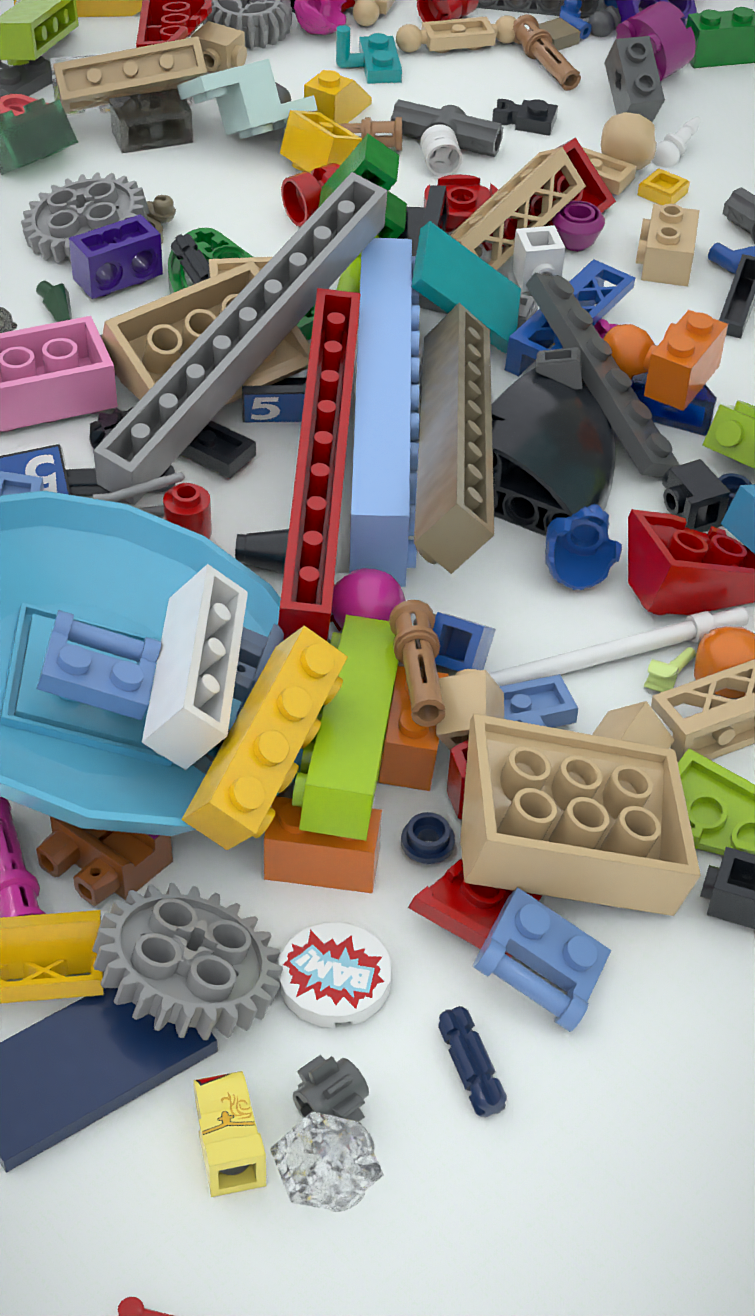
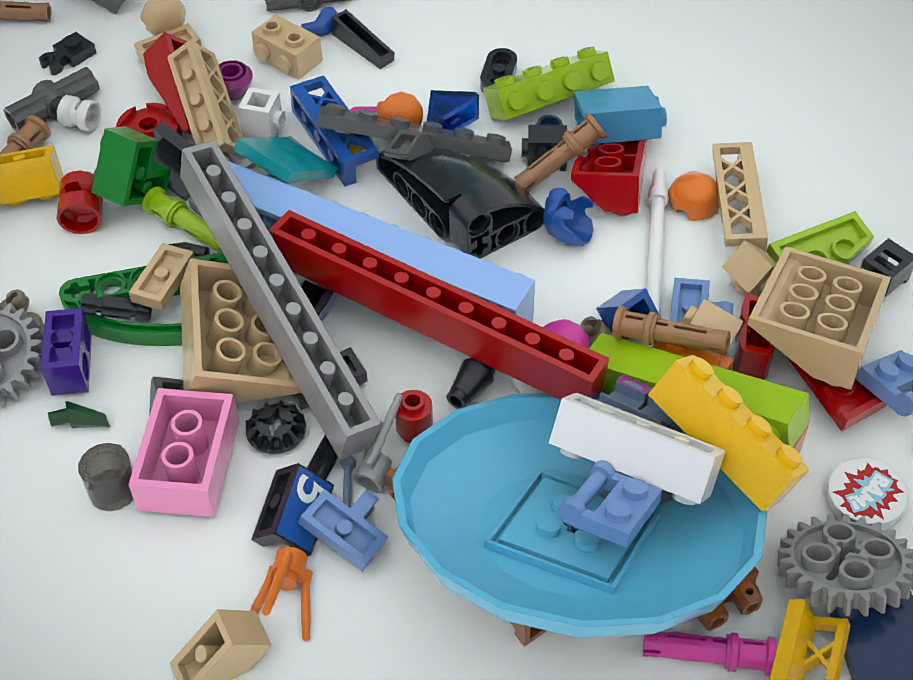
camera: 60 degrees left, 5 degrees up
(455, 442) = (481, 225): dark tan brick -> none
(663, 187) = (212, 24): yellow tile -> none
(664, 675) = (688, 230): yellowish green hand -> none
(684, 359) = (447, 85): orange brick -> none
(689, 499) = (572, 145): none -> medium nougat pin

